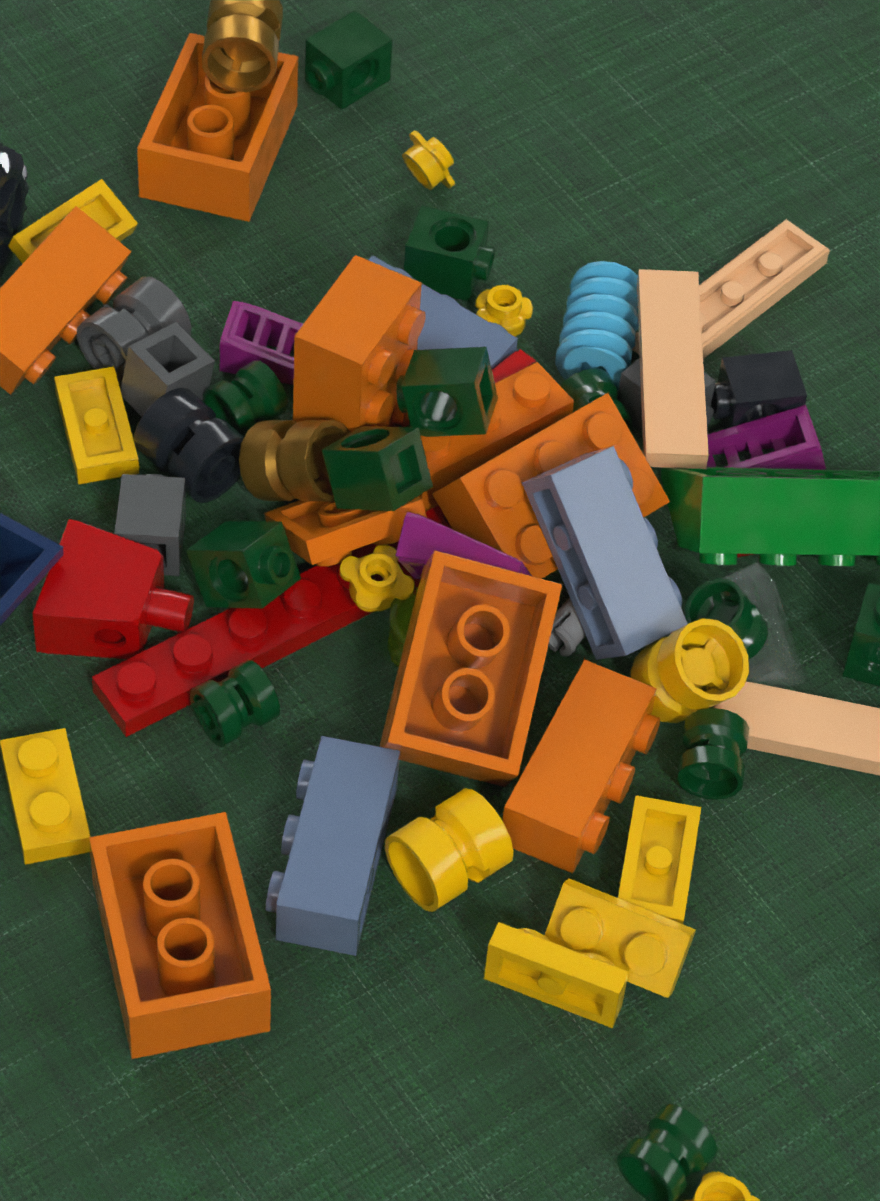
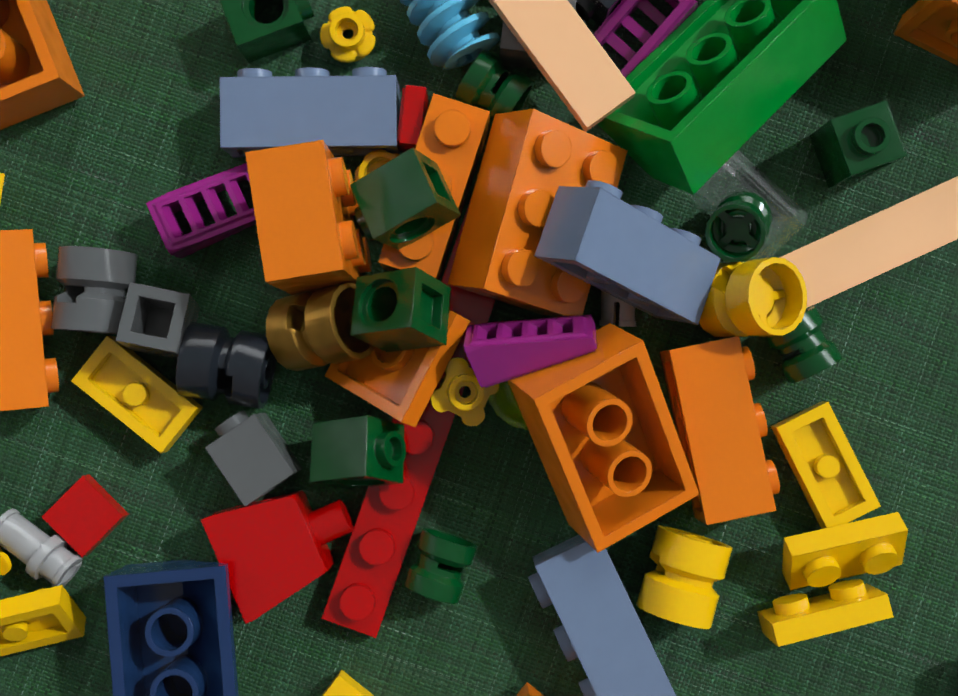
camera: 30 degrees left, 35 degrees up
(249, 398) = (232, 274): dark green wheel -> none

